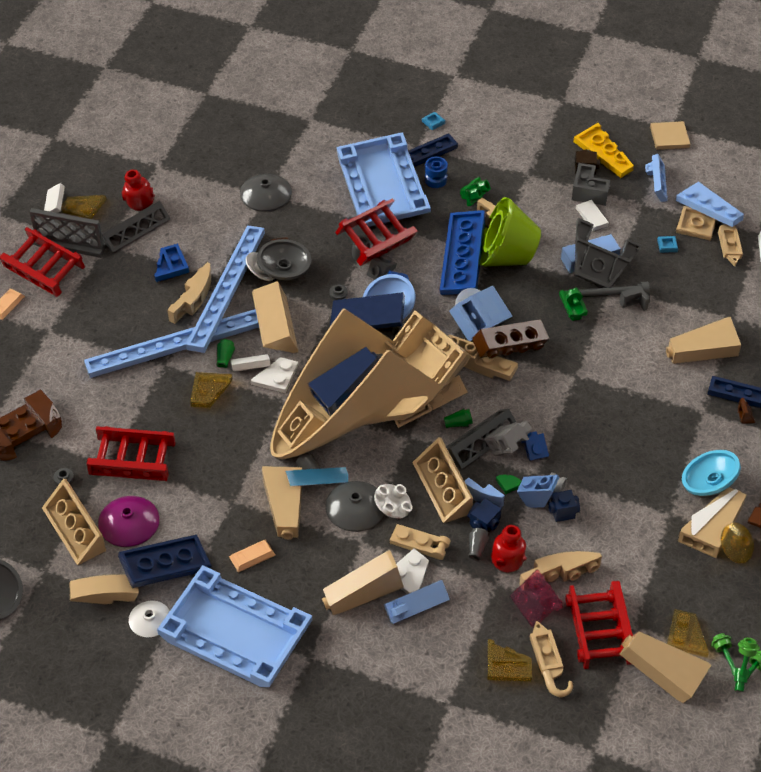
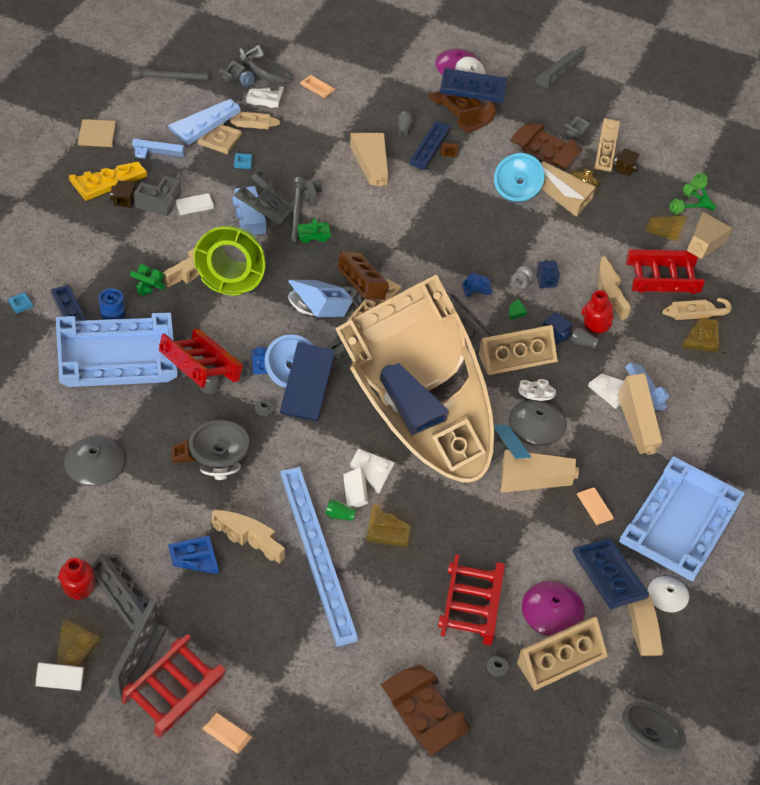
camera: 90 degrees left, 0 degrees up
(224, 290) = (251, 499): light blue plate -> none
(274, 318) = (302, 457): tan slope -> none
(420, 541) = (580, 378): tan plate -> none
(462, 252) = (230, 300): blue plate -> none
(489, 492) = (534, 320): light blue slope -> none
(505, 437) = (477, 296): light grey hips -> none
(536, 598) = (641, 298): clear pink hinge -> none
(537, 490) = (537, 281): medium blue slope -> none

